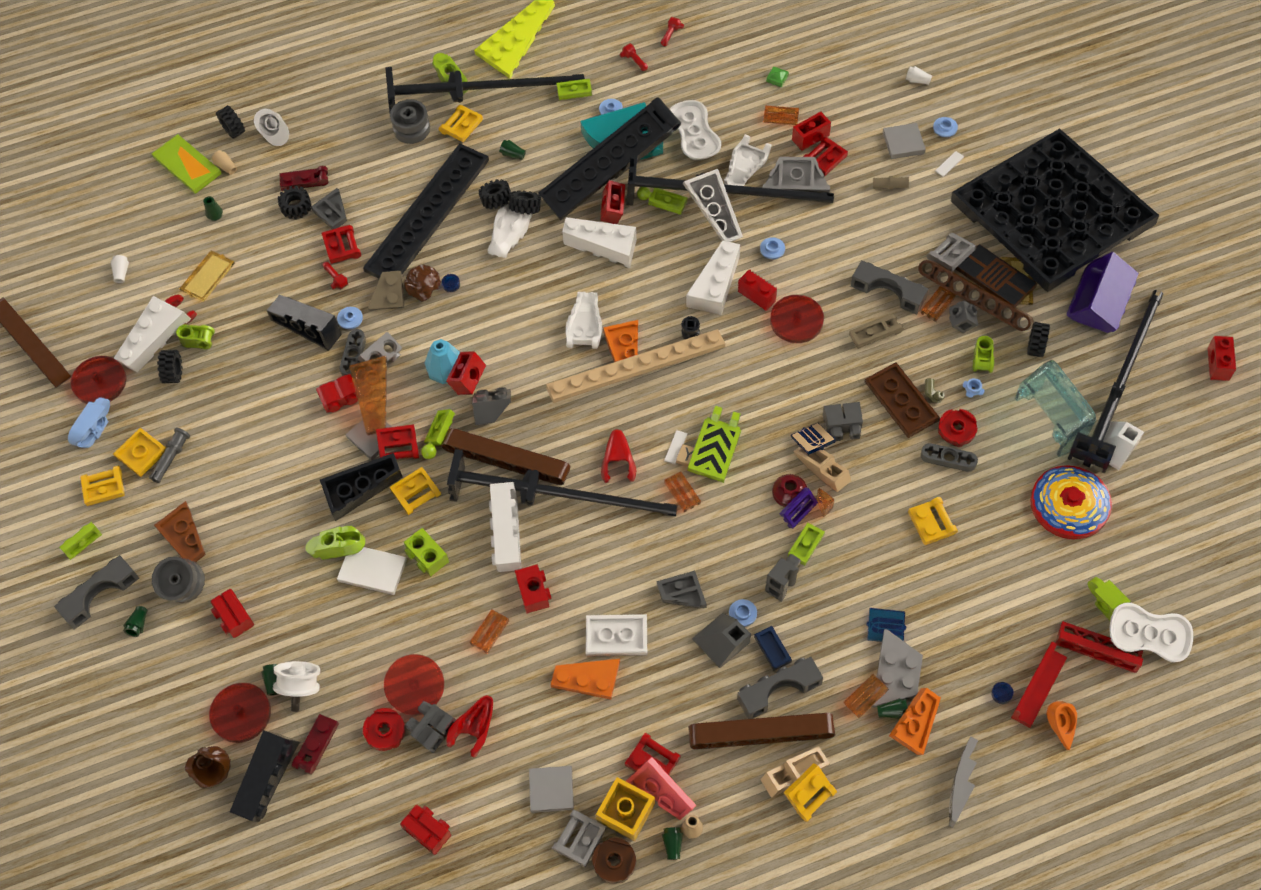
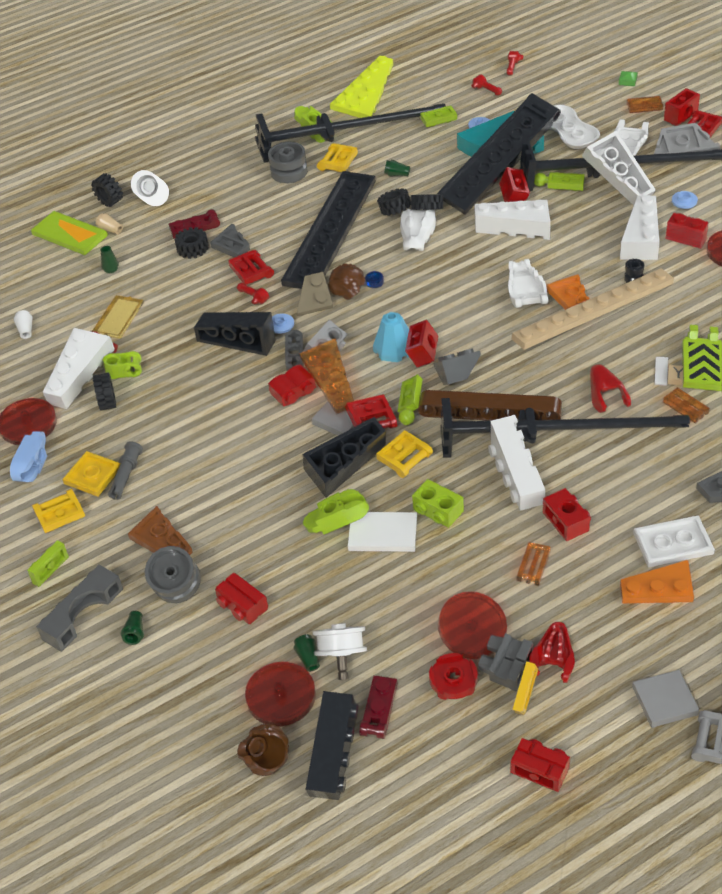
camera: 10 degrees left, 15 degrees down
(435, 758) = (525, 688): none -> yellow tile

